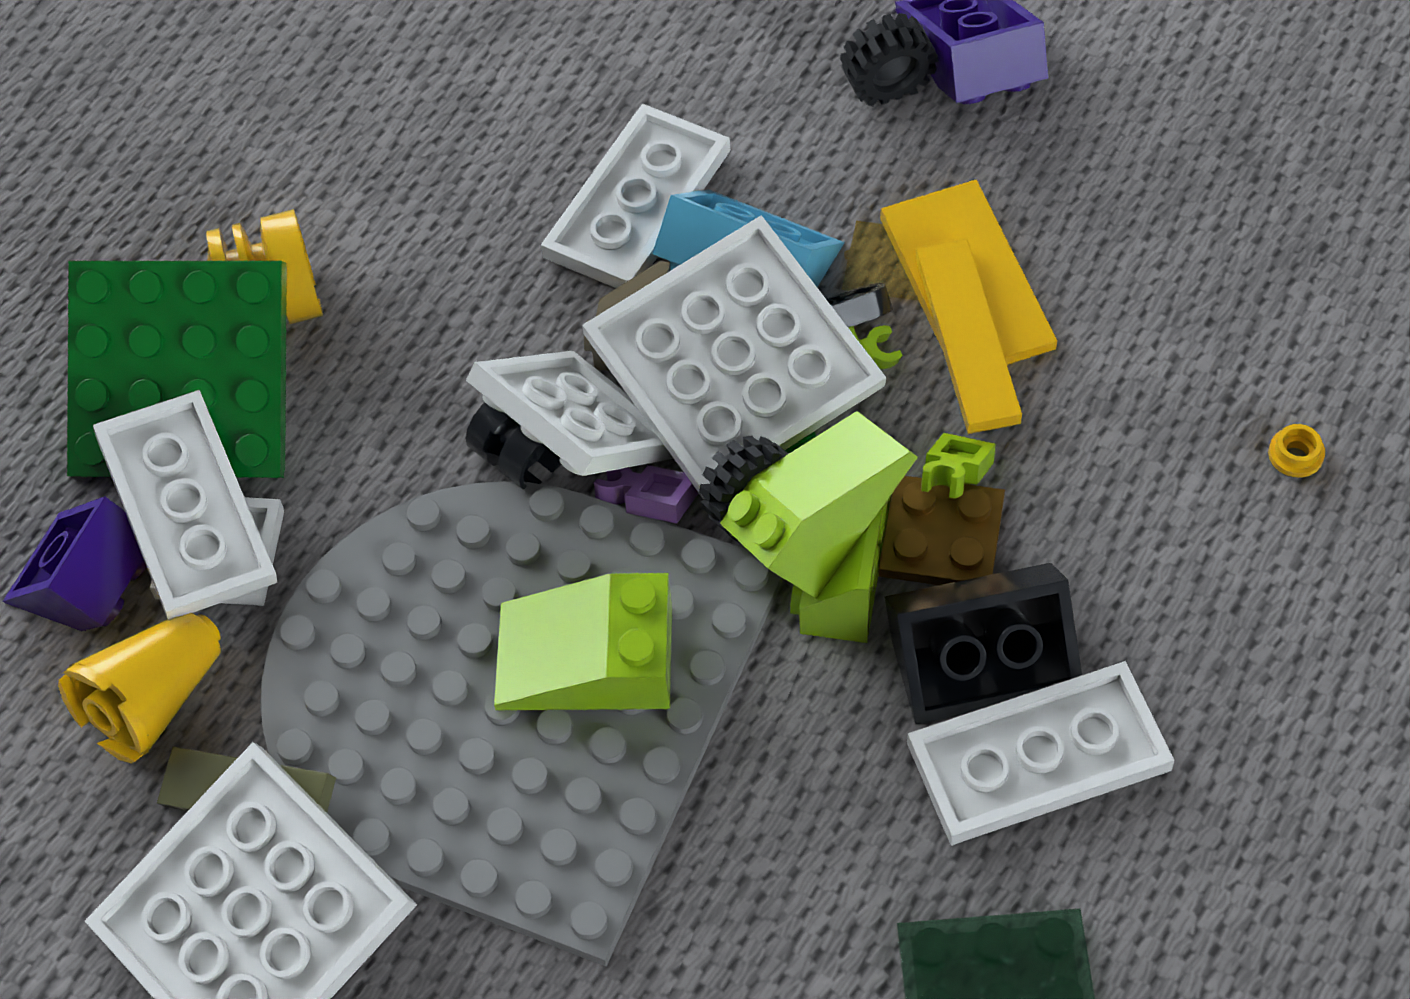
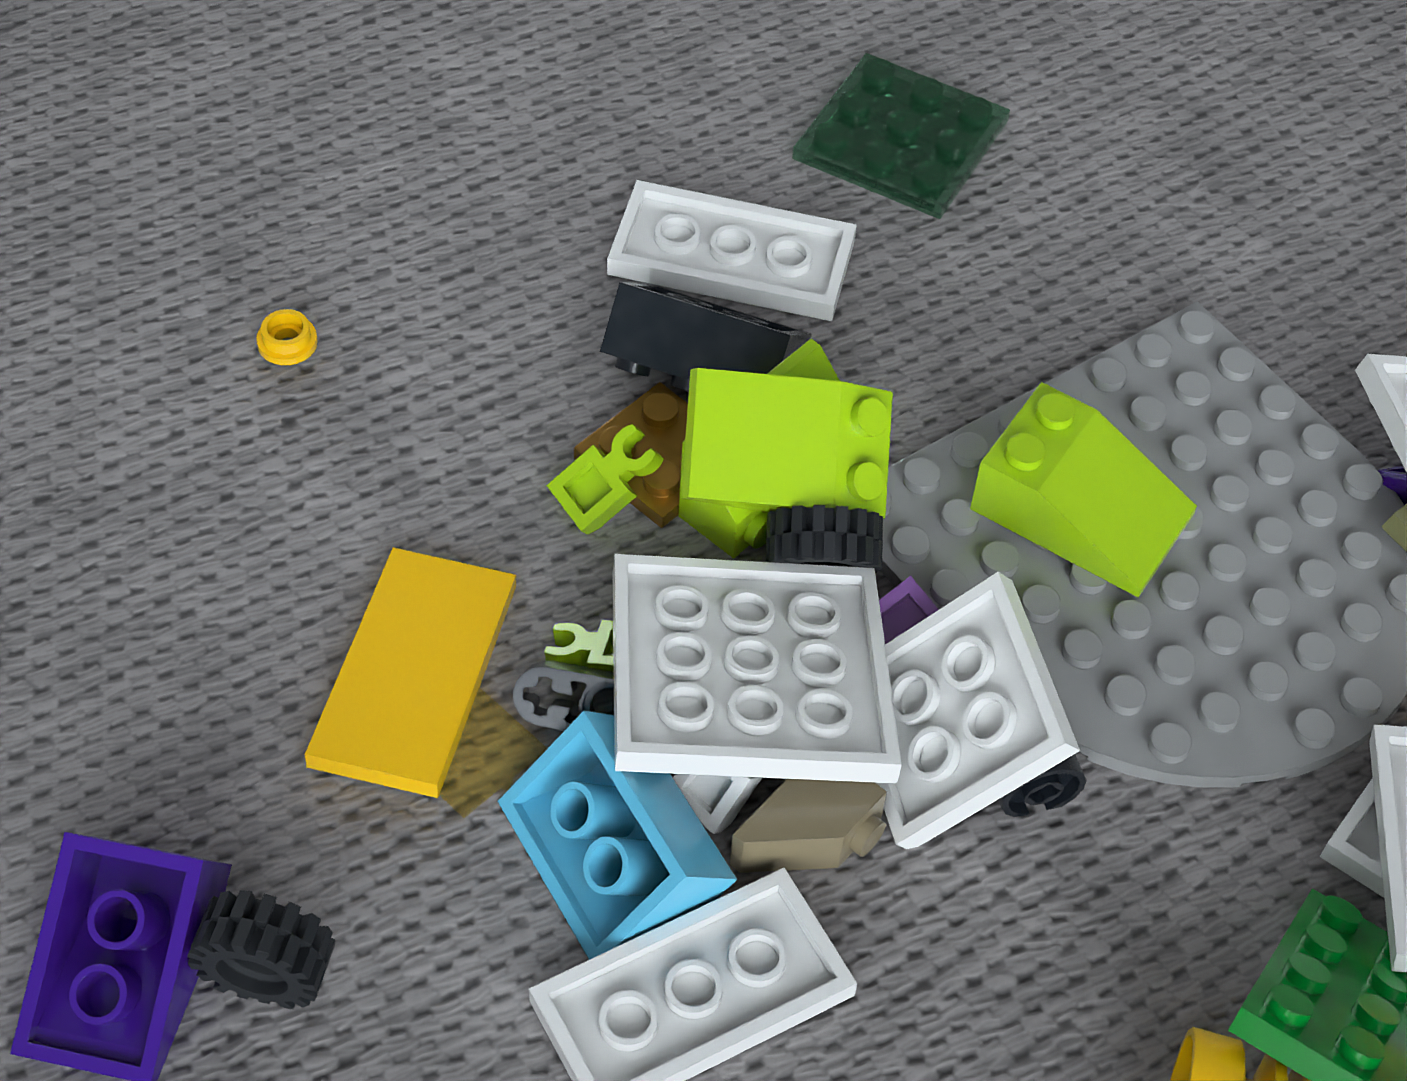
camera: 155 degrees left, 5 degrees down
(968, 336) = (476, 592): yellow tile -> none

